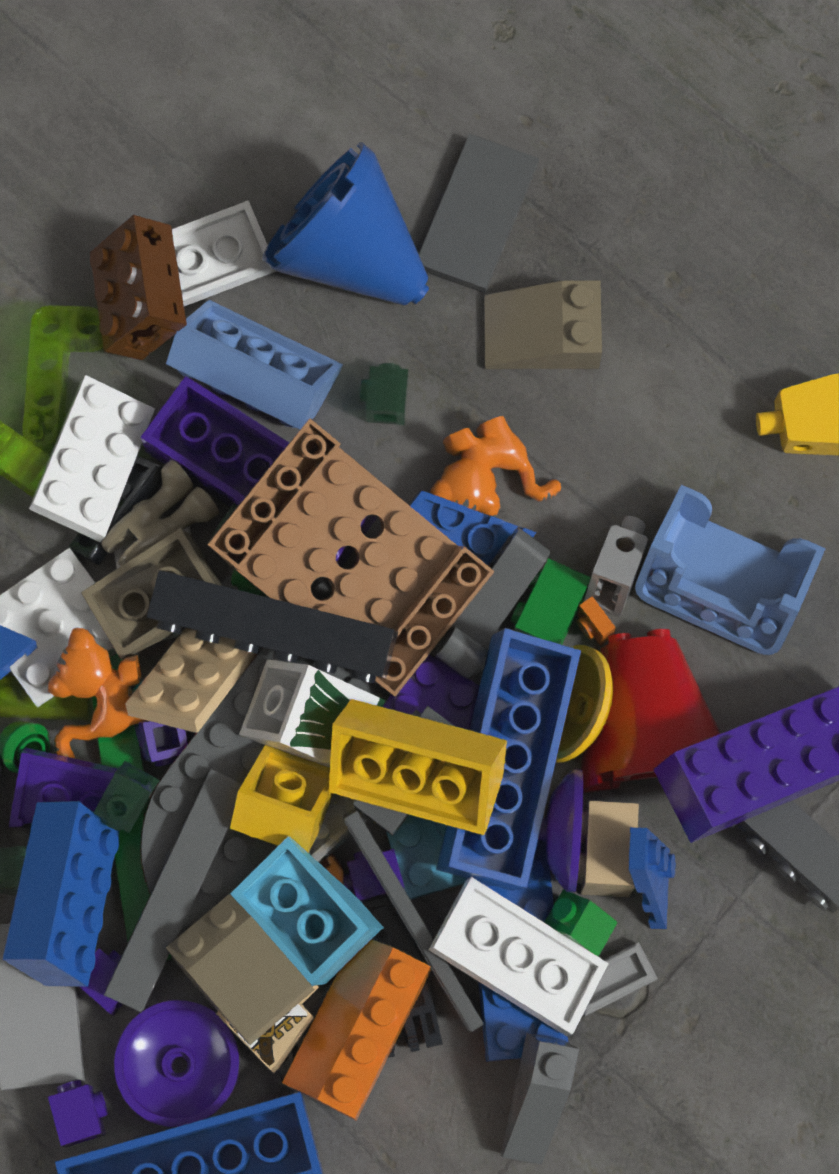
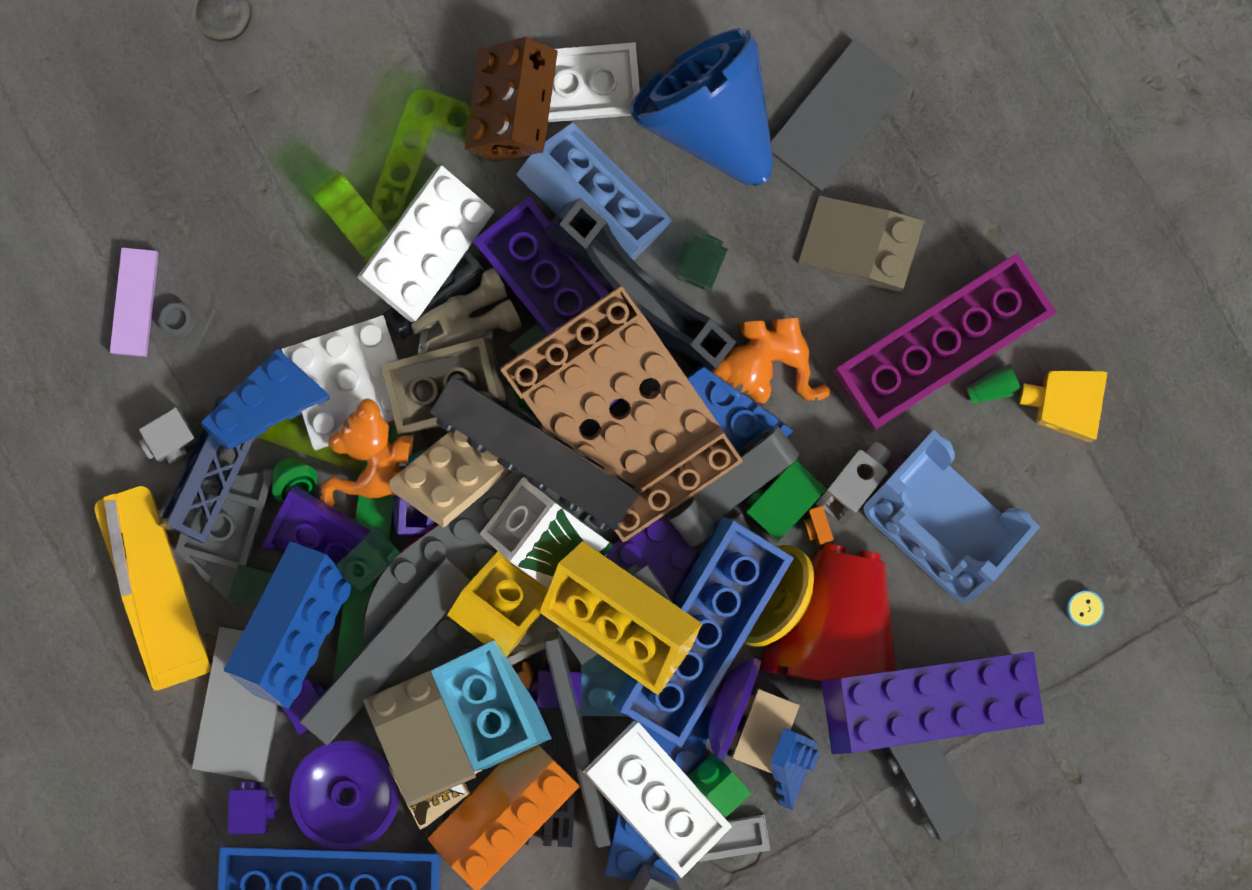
camera: 15 degrees right, 10 degrees up
(265, 399) = (595, 248): none -> black arch
(661, 396) = (944, 342): none -> magenta brick
(727, 424) = (993, 385): none -> green cone

